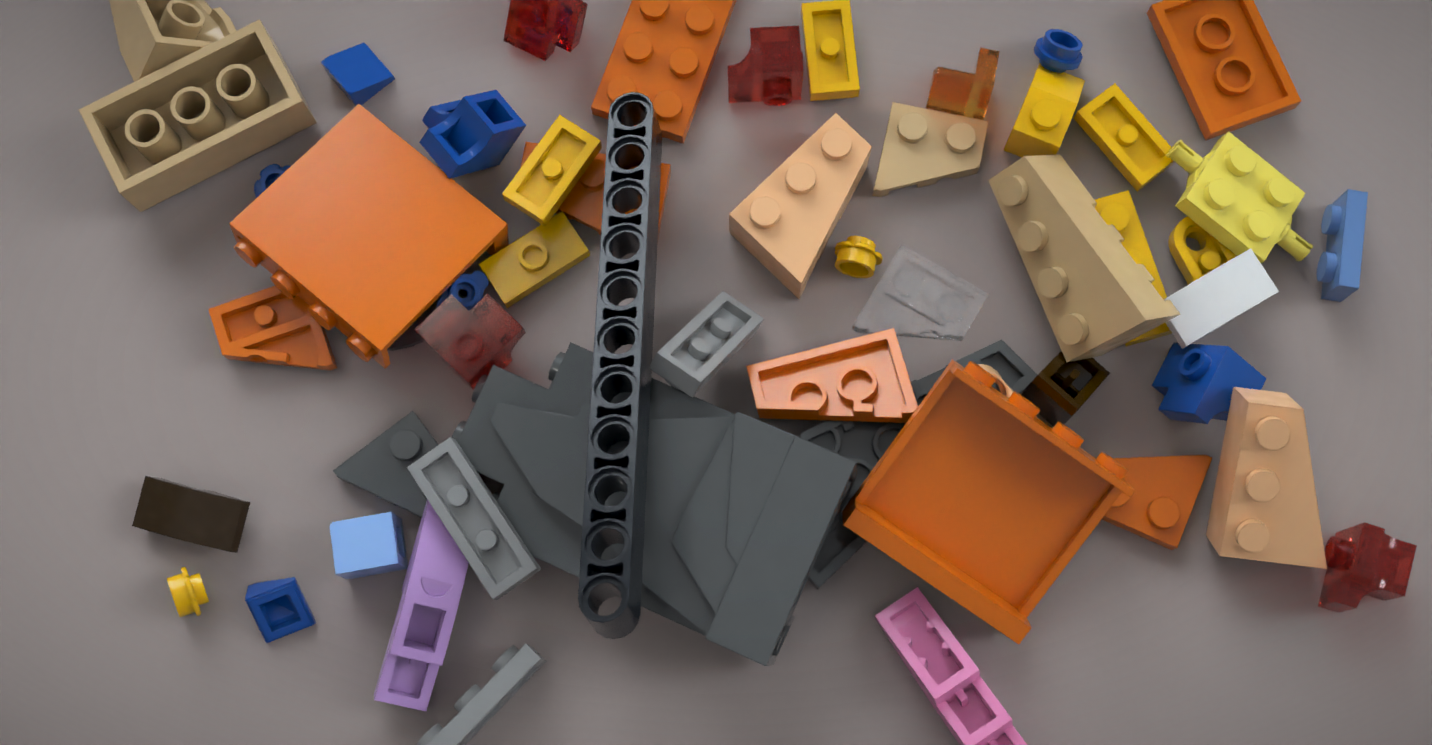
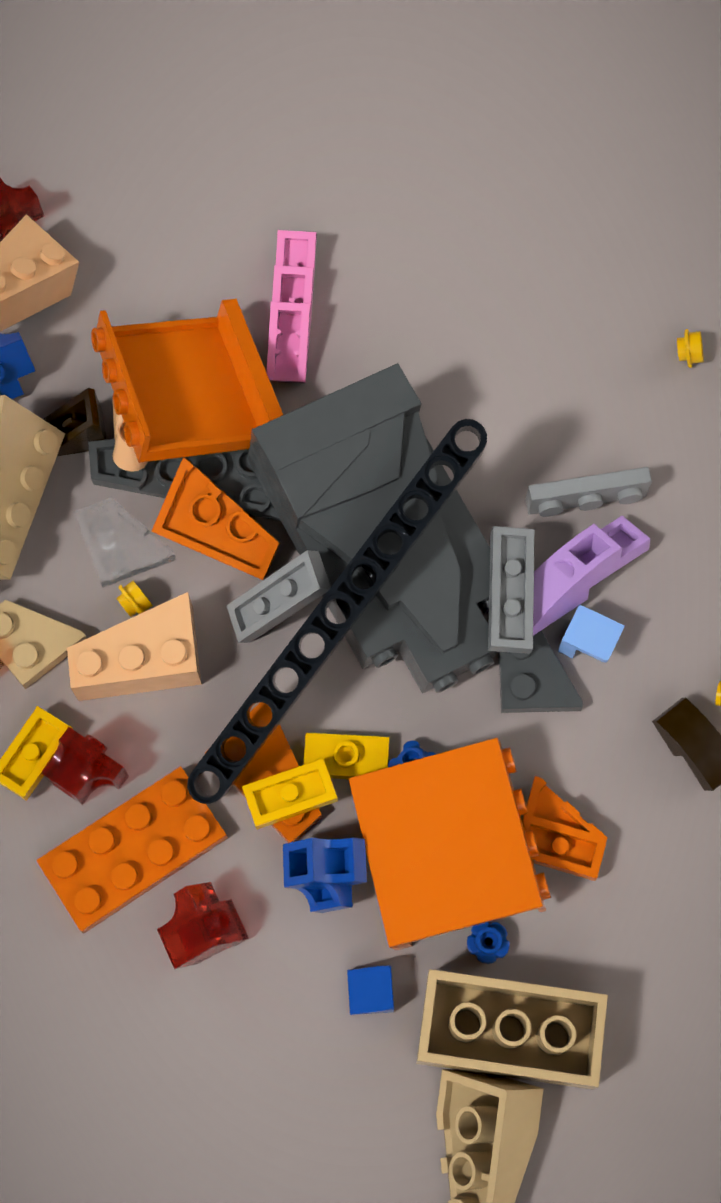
camera: 145 degrees left, 5 degrees down
(278, 608) = (676, 647): blue slope -> none
(471, 339) = (429, 717): clear red brick -> none
(1162, 496) = (71, 334): orange wing -> none

